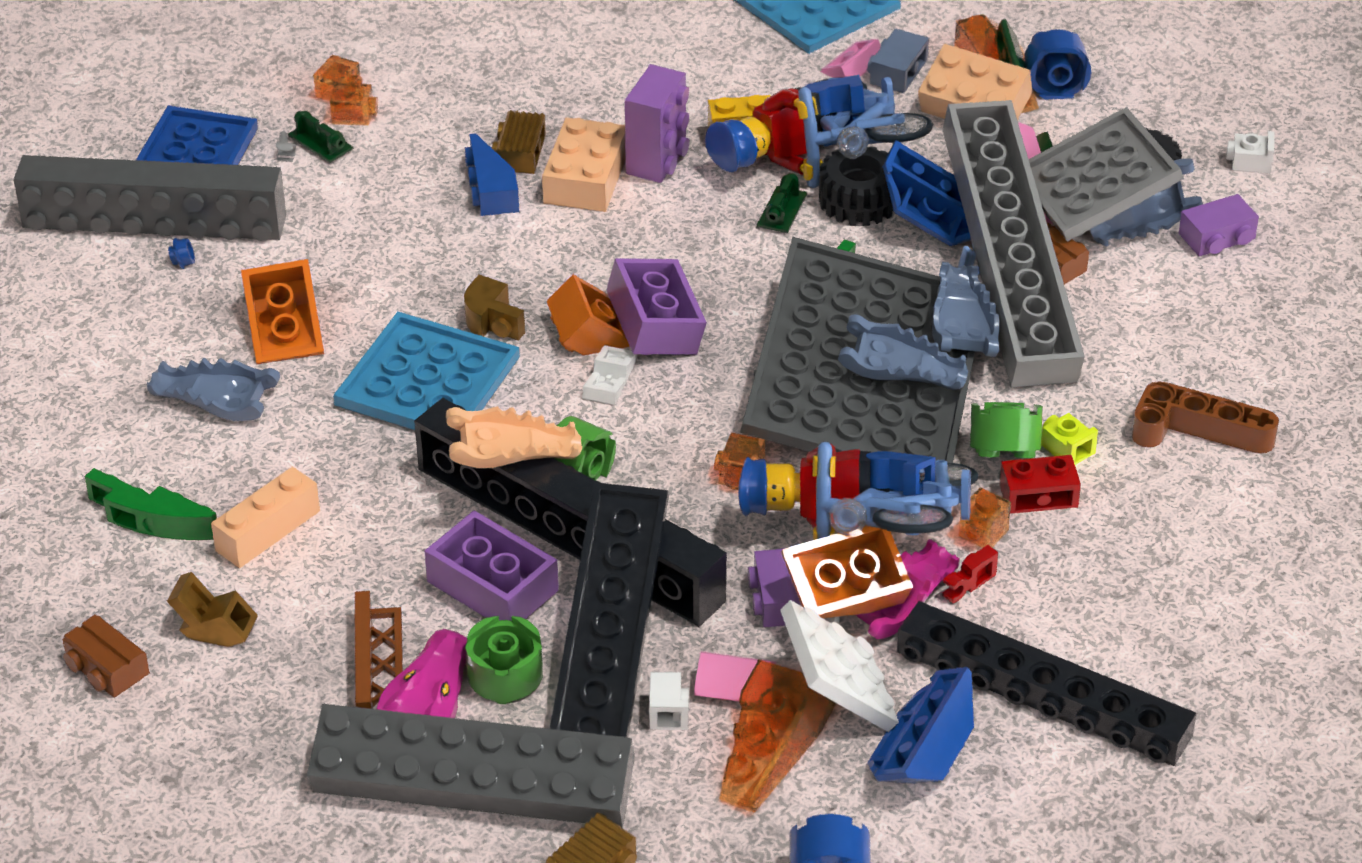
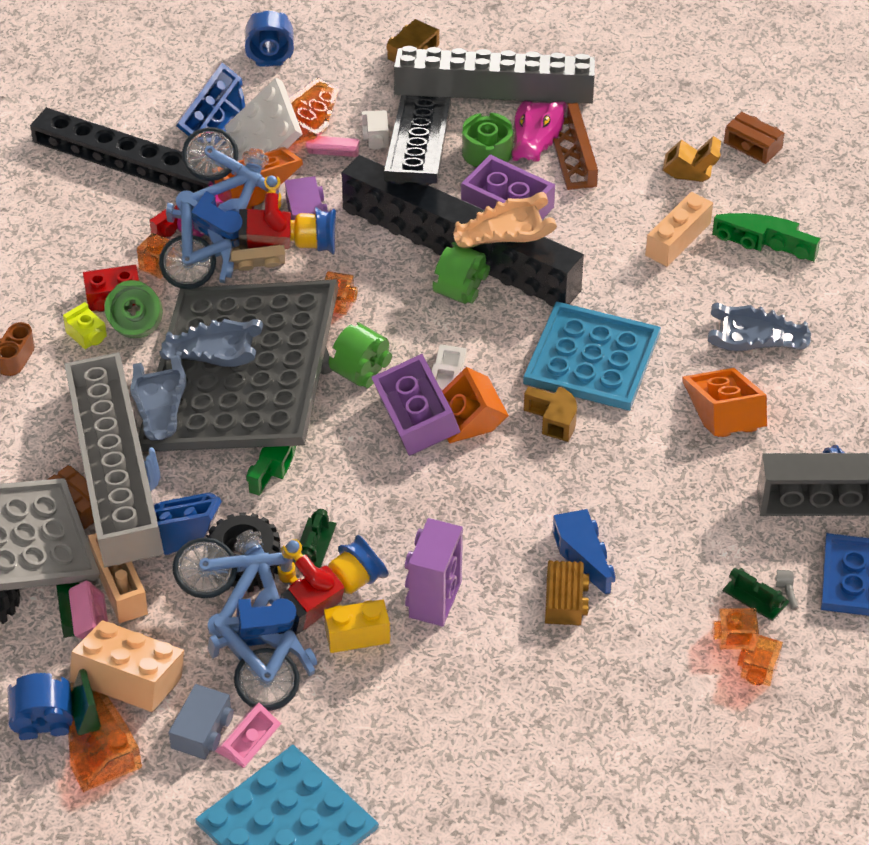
camera: 175 degrees right, 5 degrees up
(584, 164) = (498, 564): light nougat brick -> none
(717, 363) = (360, 354): none -> bright green brick

